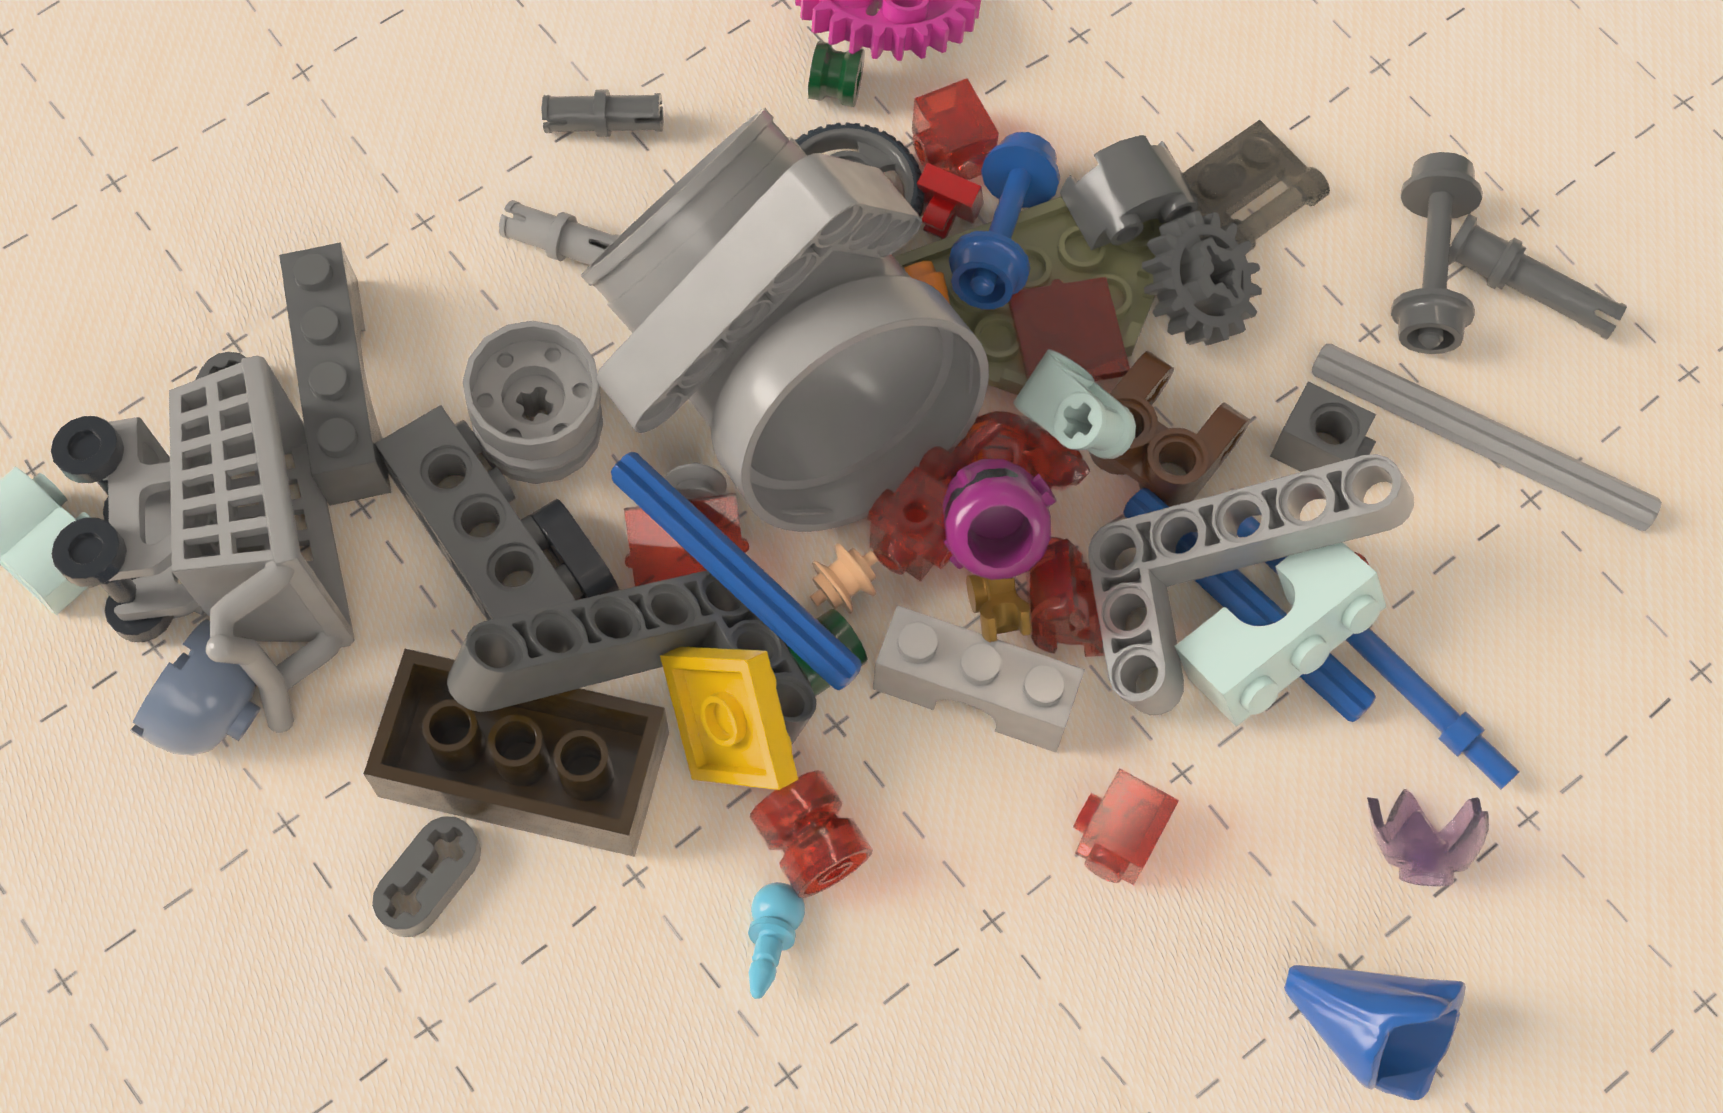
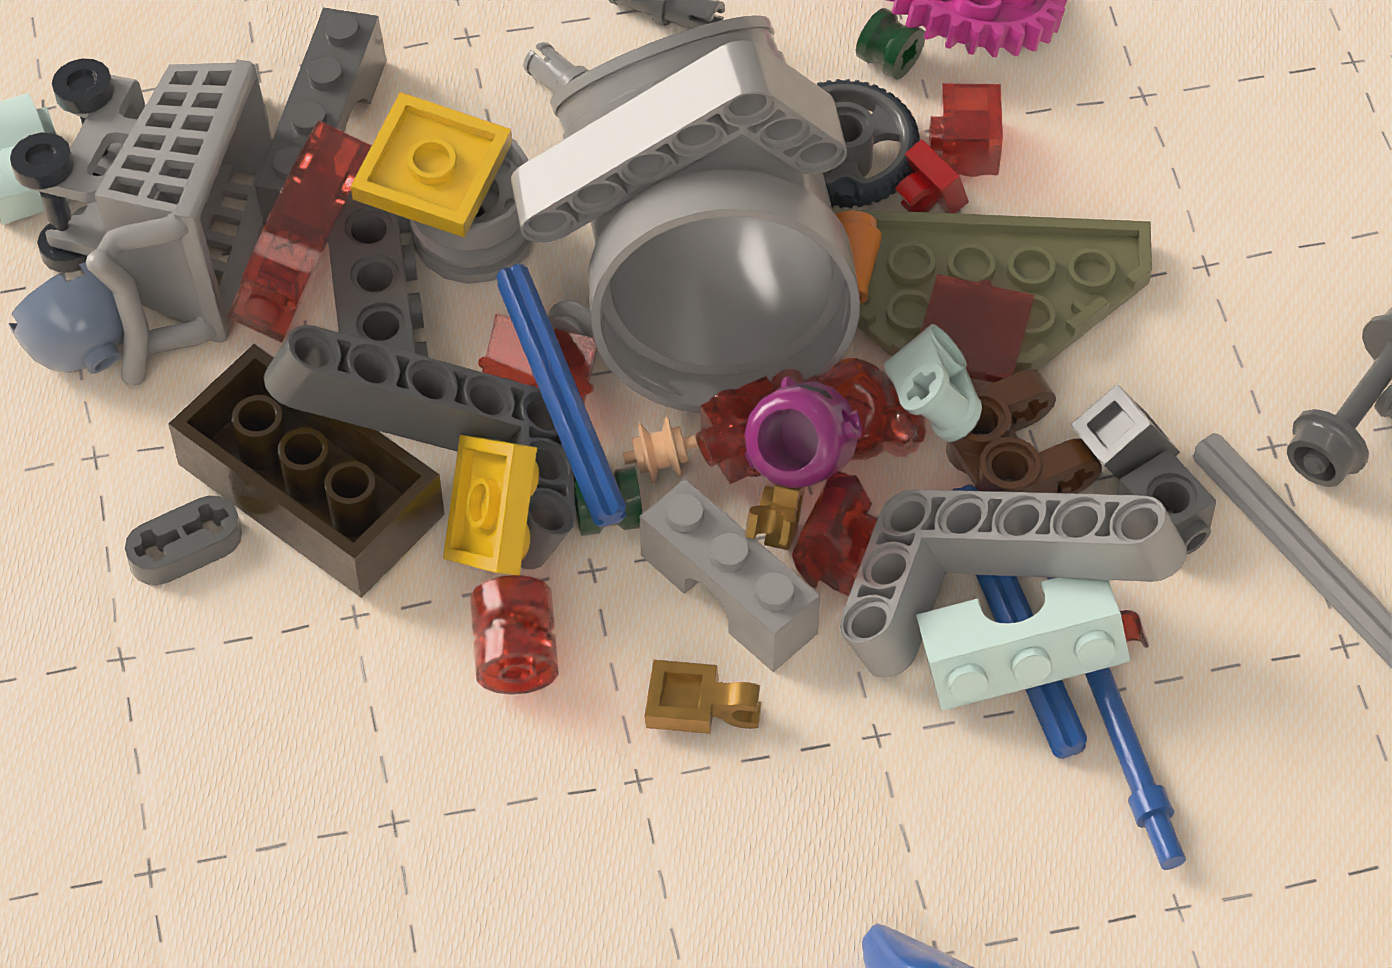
camera: 30 degrees right, 10 degrees down
(390, 504) = (298, 231): none -> clear red arch
(494, 388) = (431, 164): none -> yellow plate
(574, 550) = (440, 326): black beam -> none
(776, 917) = (442, 702): medium azure bar -> none
(989, 263) = (926, 240): blue piece -> none
(1004, 820) = (689, 696): none -> pearl gold plate
(1122, 827) = (791, 747): clear red brick -> none
(1127, 189) = (1096, 225): dark grey cylinder -> none
(1202, 278) = (1126, 300): dark grey gear -> none
(1246, 170) = (1220, 266): clear smoke plate -> none
(1261, 385) = (1121, 433): none -> brick
(1419, 849) = (1054, 870): piece -> none

